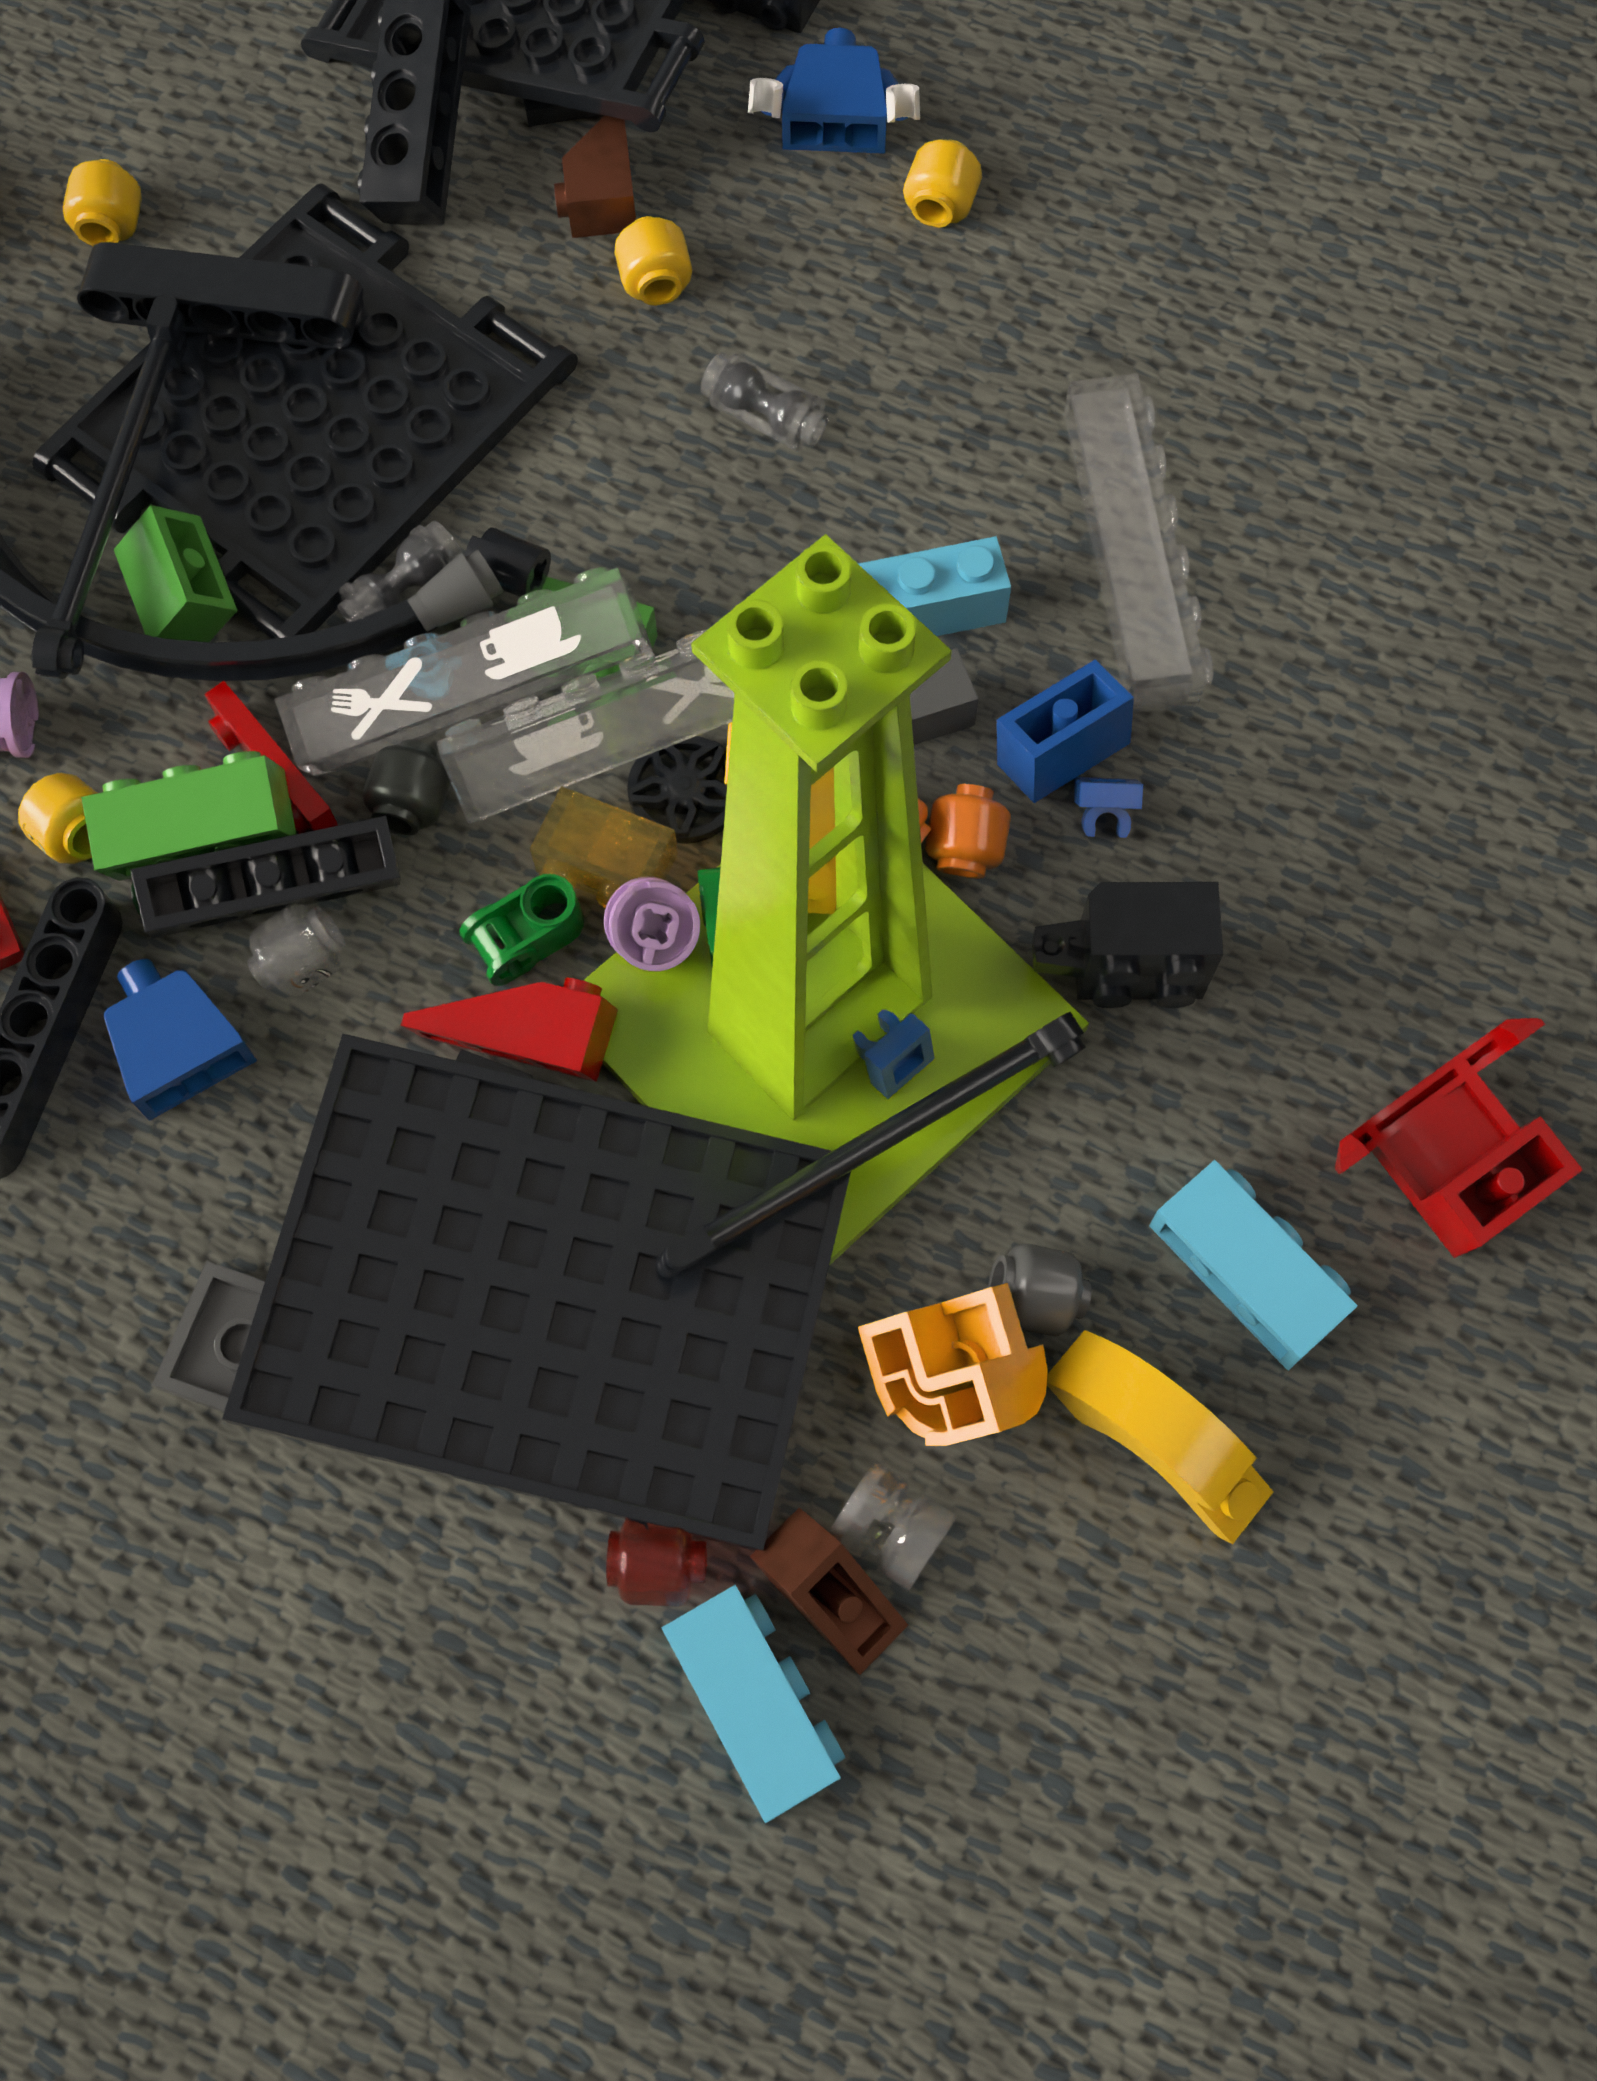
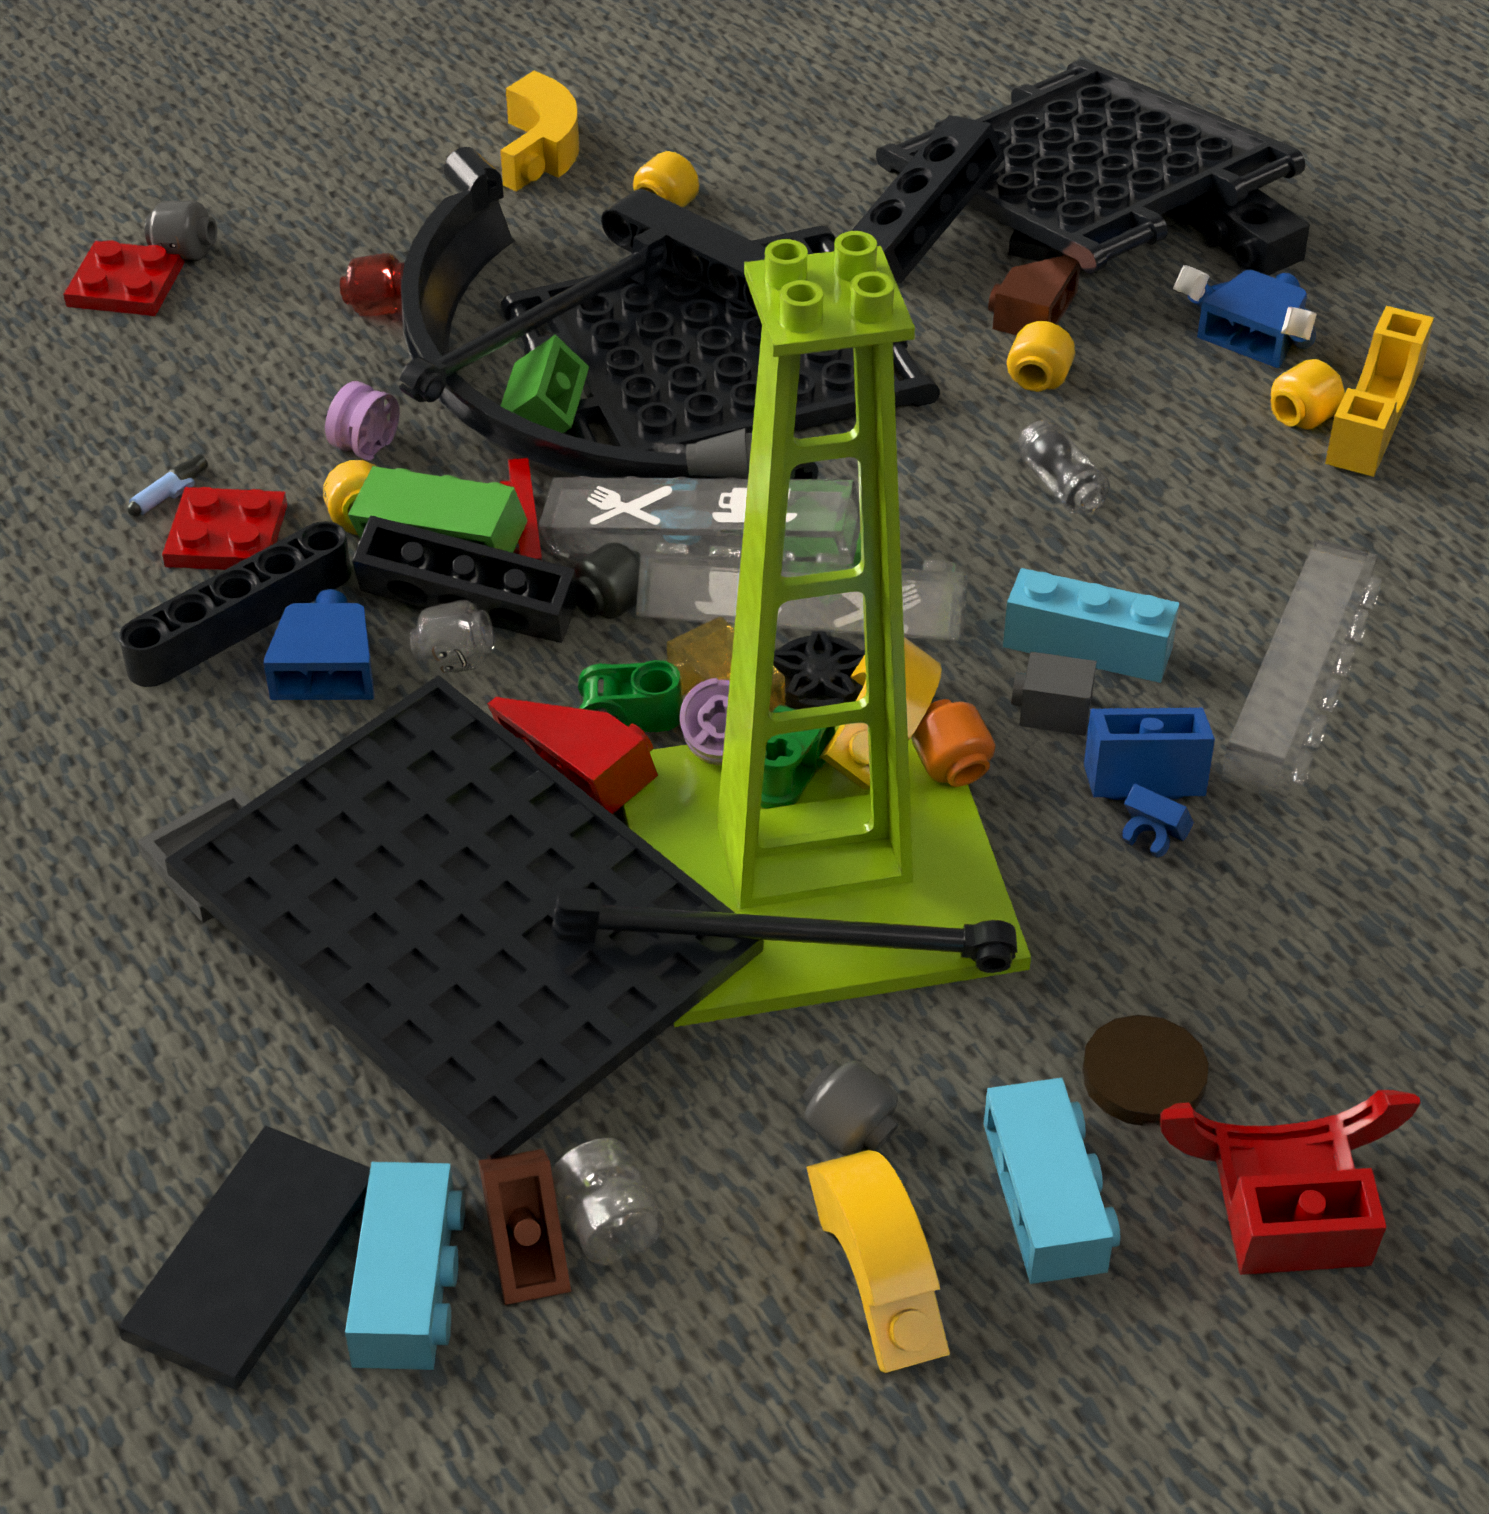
camera: 30 degrees right, 25 degrees down
(602, 1779) = (248, 1258): none -> black tile
(654, 1564) = (403, 1128): clear red head -> none
(898, 1054) = (851, 889): blue tile -> none
(957, 1367) = (738, 1113): light orange brick -> none
(968, 832) = (1021, 787): orange head -> none
(1021, 186) = (1388, 377): none -> yellow arch
(1137, 943) = (1104, 906): black hinge -> none
(1255, 1088) = (1142, 1067): none -> dark brown tile

